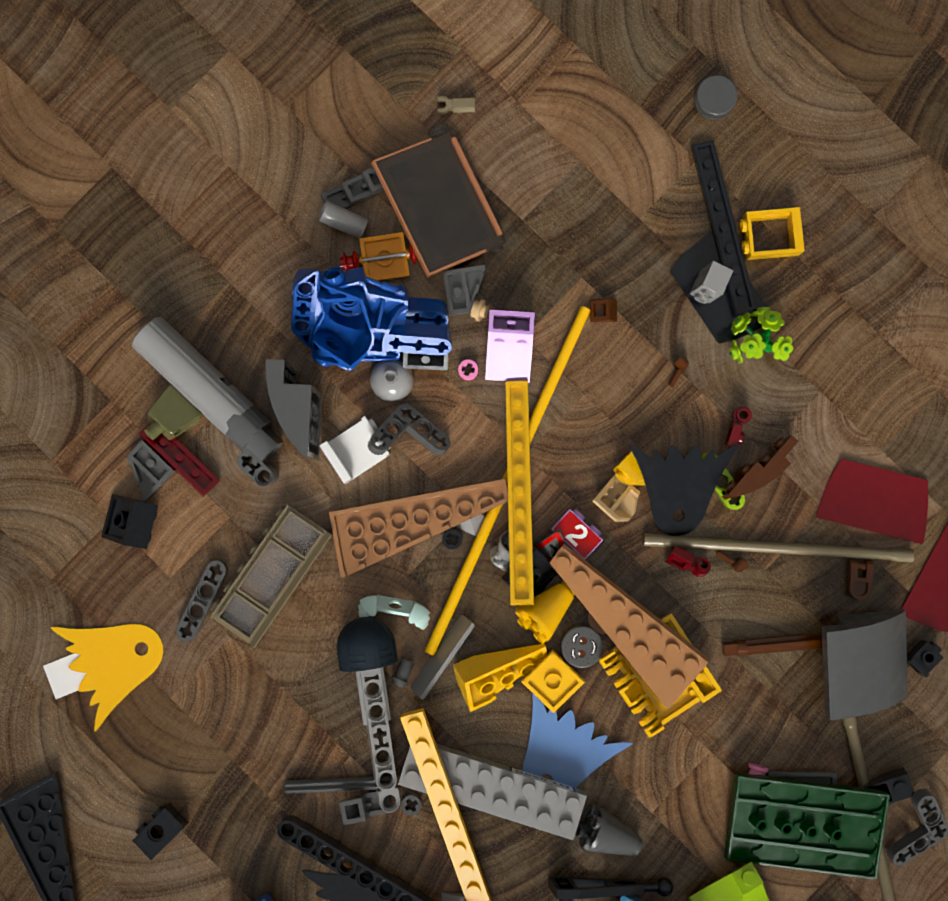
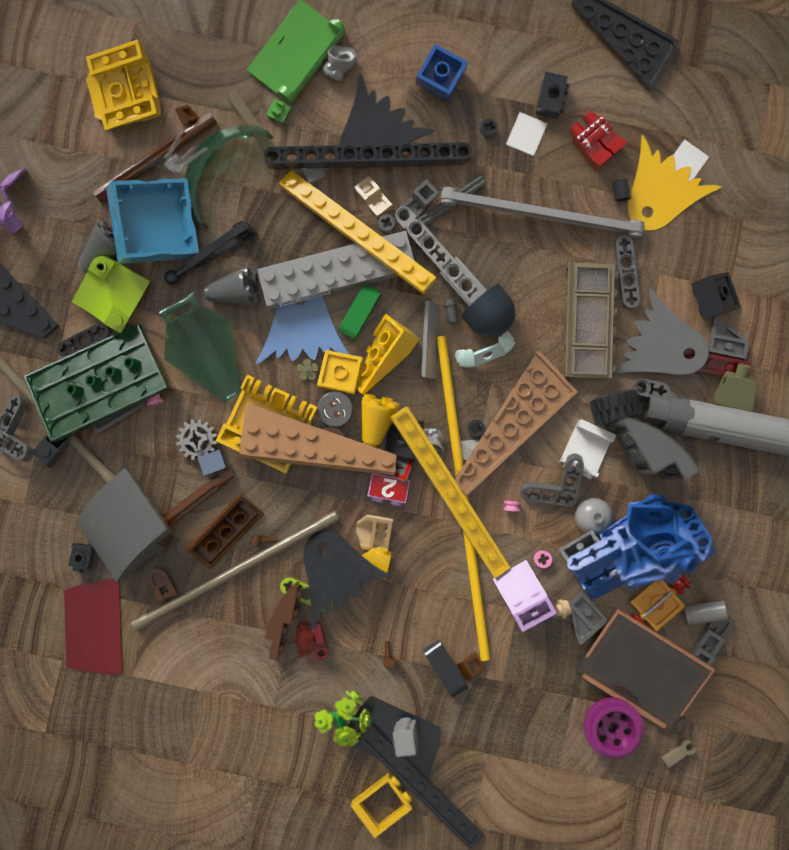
camera: 150 degrees right, 0 degrees up
(144, 754) = (597, 141): none -> red hips
(153, 687) = (621, 190): none -> black beam
(210, 806) = (526, 133): none -> white sticker
(212, 506) = (663, 343): none -> dark grey piece
(243, 844) = (491, 133): none -> black bush
(302, 473) = (615, 407): none -> black tyre
(330, 790) = (633, 228): none -> light grey piece
(407, 840) = (373, 197): none -> tan slope
(465, 440) = (512, 506): none -> bright pink bush
(495, 730) = (359, 311): none -> green beam
(498, 144) = (628, 743): none -> magenta wheel
(584, 704) = (307, 370): none -> olive plant
(630, 324) = (445, 668): none -> black beam
(676, 794) = (202, 347): none -> clear green windscreen
(684, 560) = (299, 518): dark red plate -> none
(736, 669) = (212, 462): none -> sand blue panel
(736, 711) = (194, 430): none -> light grey gear
(752, 438) = (304, 639): none -> clear red hat
(765, 594) = (225, 531): none -> reddish brown slope
(798, 885) = (93, 329): none -> black beam
(876, 501) = (183, 651): dark red sticker -> none

